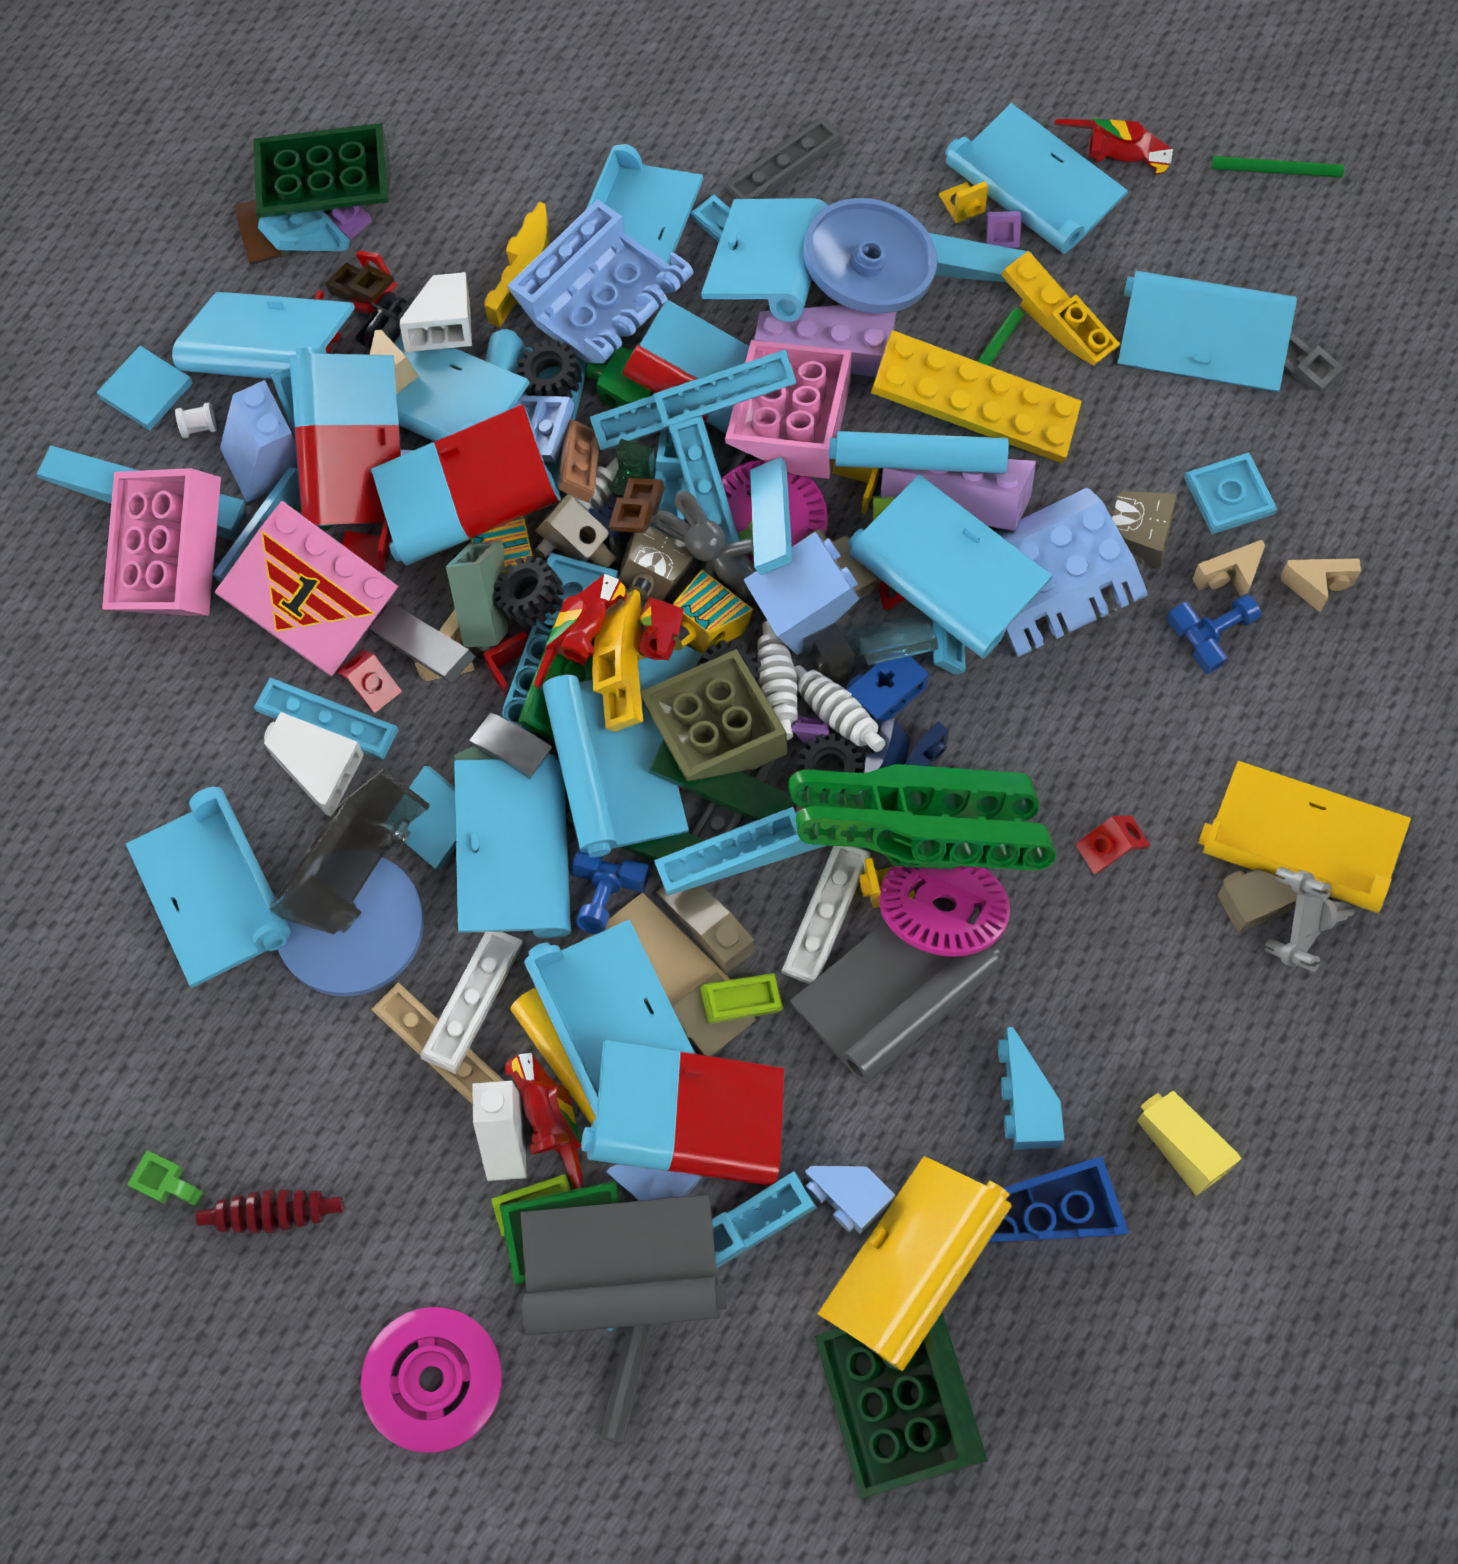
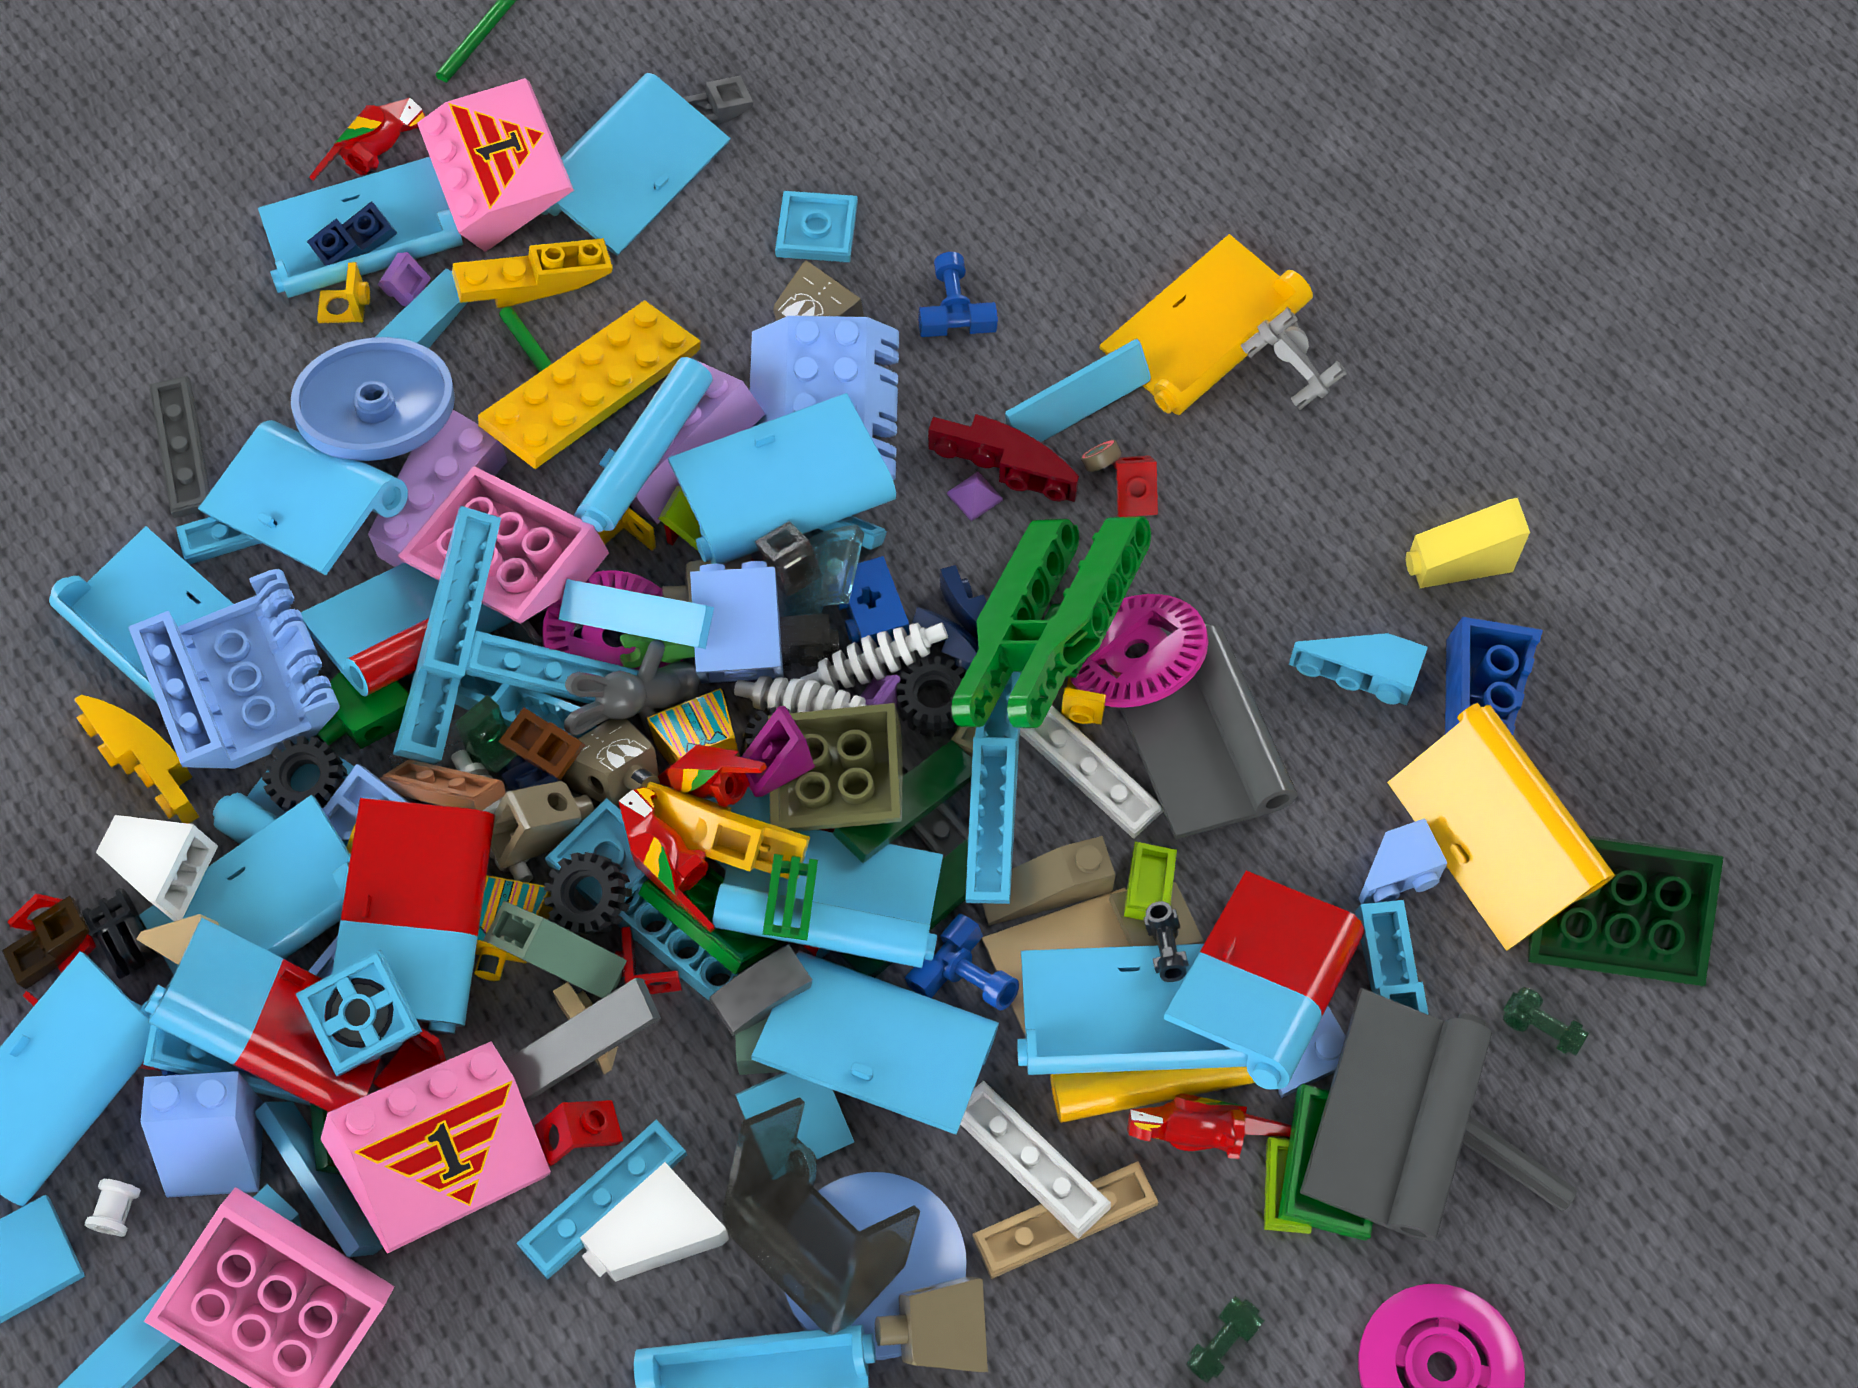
camera: 70 degrees left, 5 degrees down
(309, 983) = (939, 1326): none -> dark tan torso
(368, 484) = (360, 1013): none -> medium azure piece
(407, 1206) = (1241, 1321): none -> clear green bar
(500, 1129) = (1203, 1176): white slope -> none
(609, 719) = (794, 869): none -> green tile
(697, 1021) = (1163, 925): none -> black bar
(698, 667) = (782, 750): none -> magenta slope
(765, 1345) = (1524, 1009): none -> clear green bar
(879, 602) = (791, 556): none -> clear smoke brick
(1020, 178) = (354, 237): none -> dark blue slope
(1035, 724) = (974, 496): none -> medium lavender slope
(1083, 729) = (1021, 458): none -> dark red slope
(1122, 804) = (1101, 455): none -> dark tan tile
(1140, 231) = (495, 161): none -> bright pink slope
(1171, 762) = (1081, 393): none -> medium azure slope
(1236, 565) = (907, 252): tan slope -> none
(1255, 898) = (1249, 390): dark tan slope -> none
(1313, 576) = (951, 197): tan slope -> none

